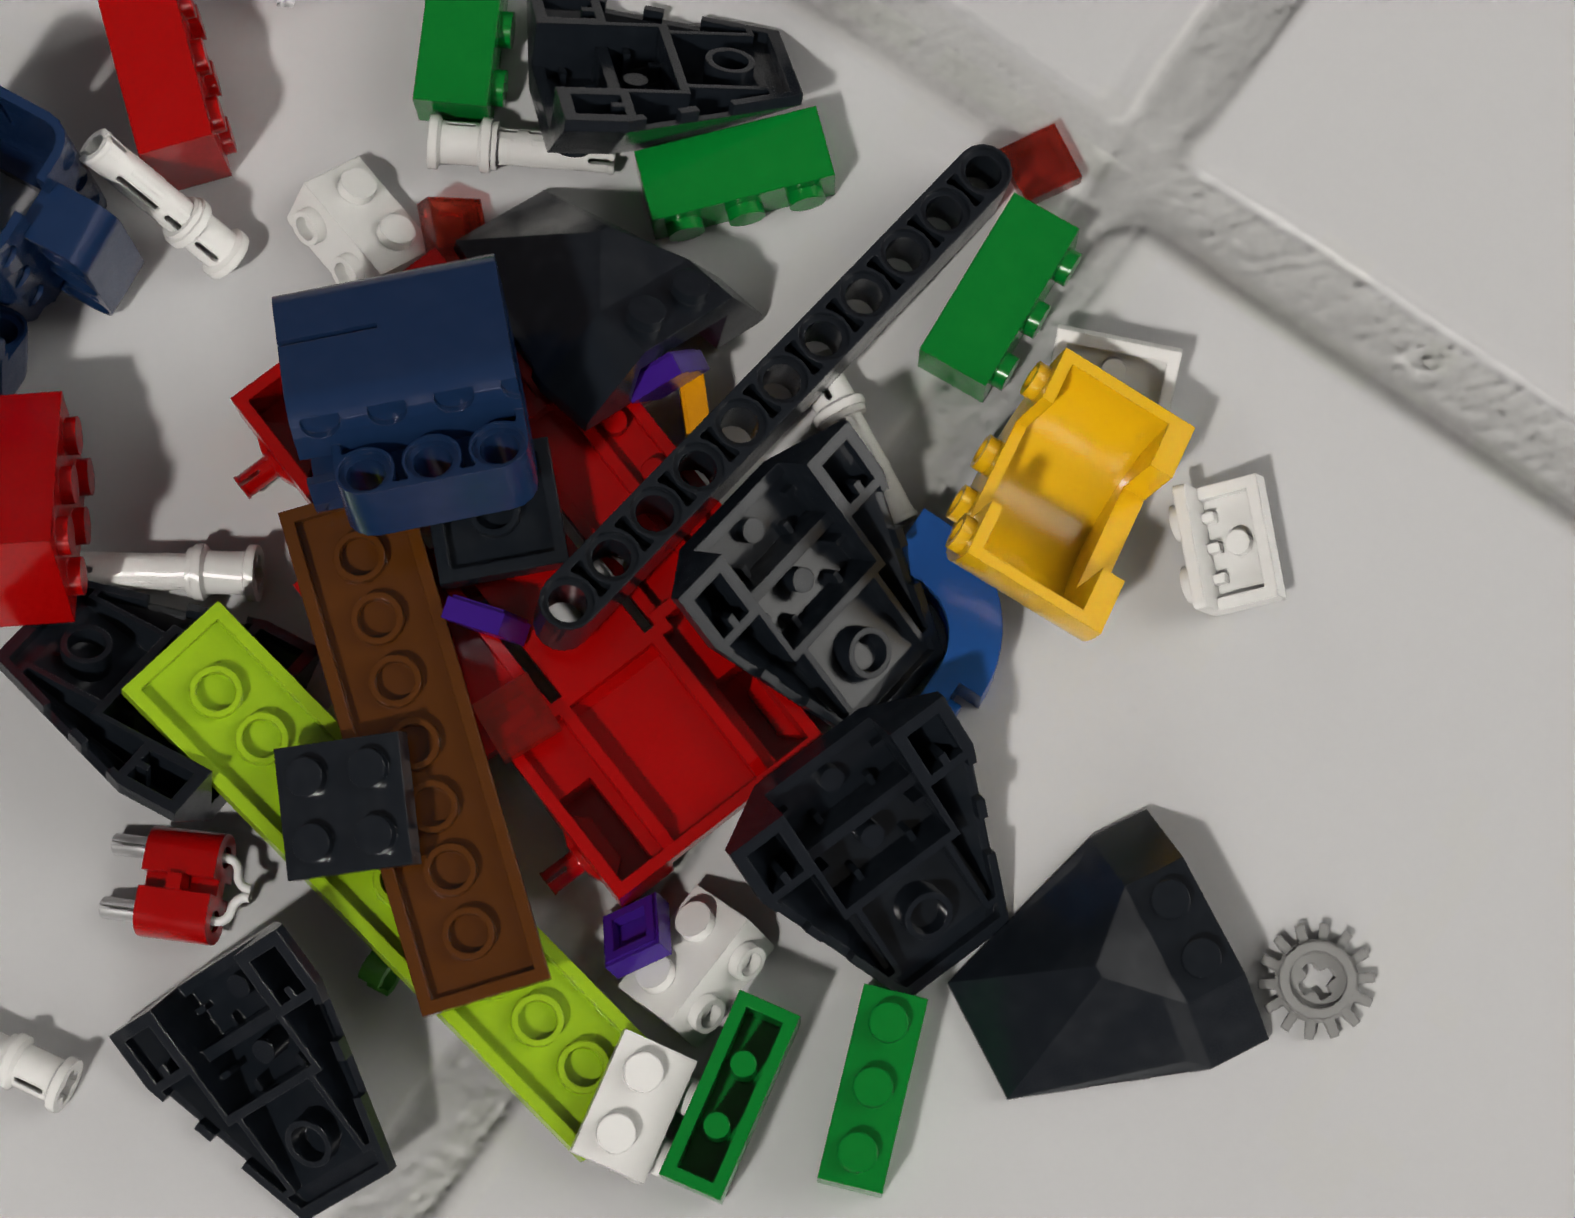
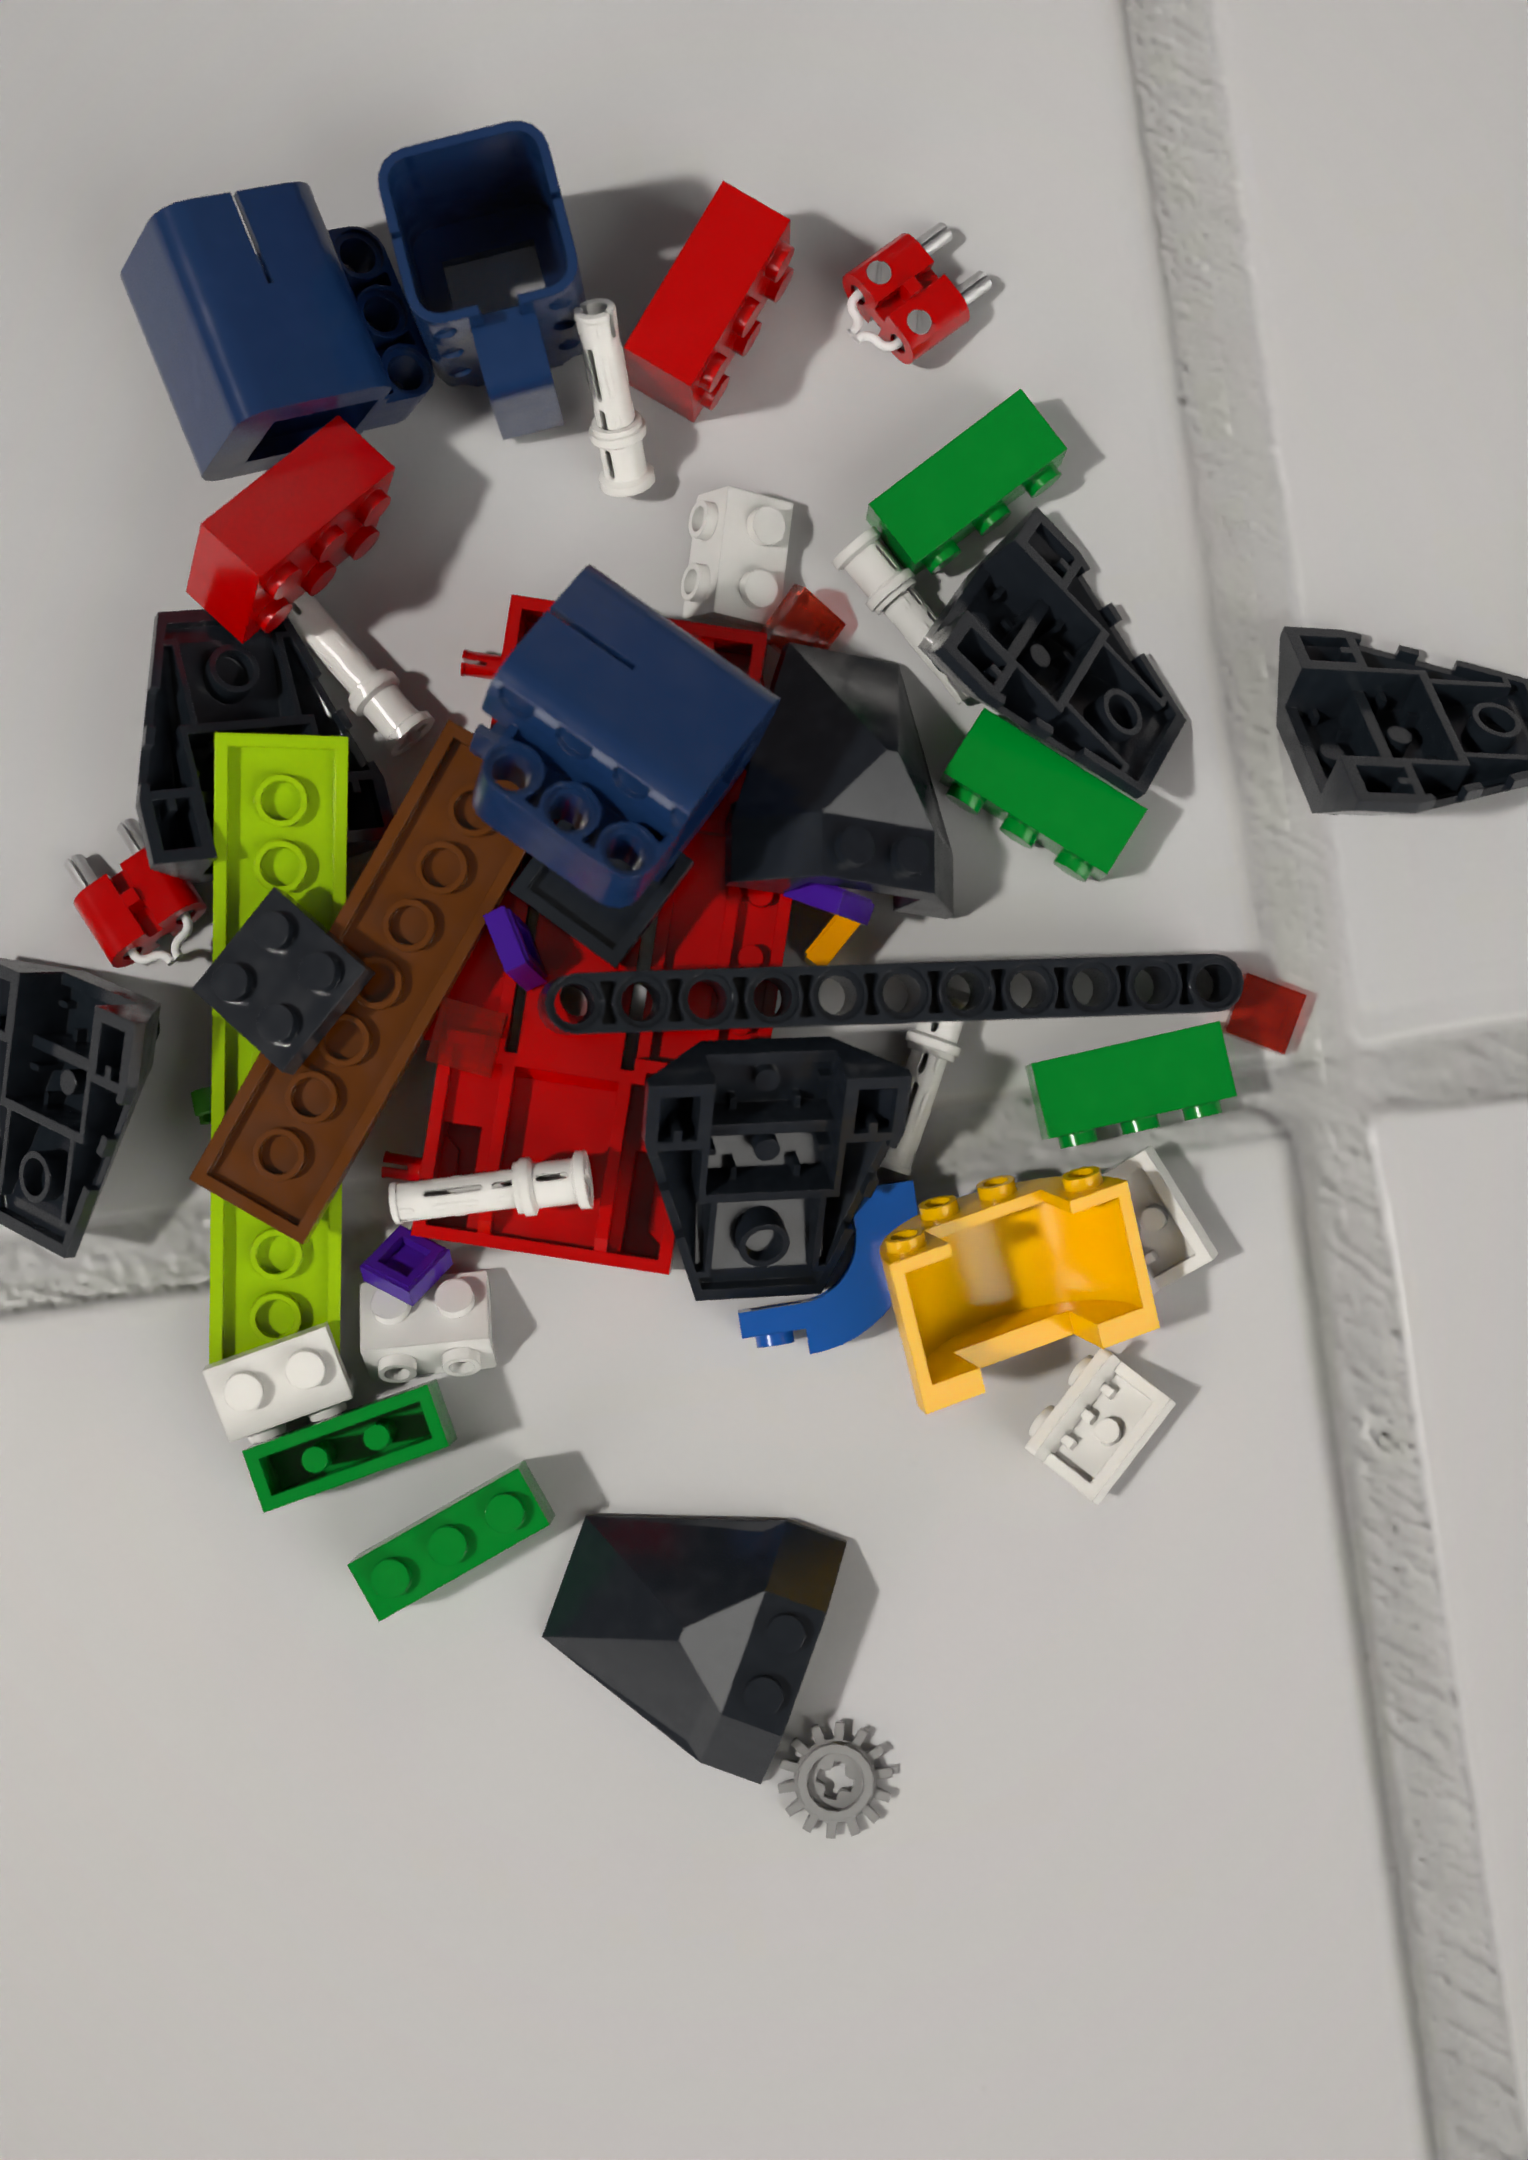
camera: 40 degrees right, 10 degrees up
(663, 775) = (522, 1187): none -> white pin
(879, 843) = (627, 1380): black wedge -> none

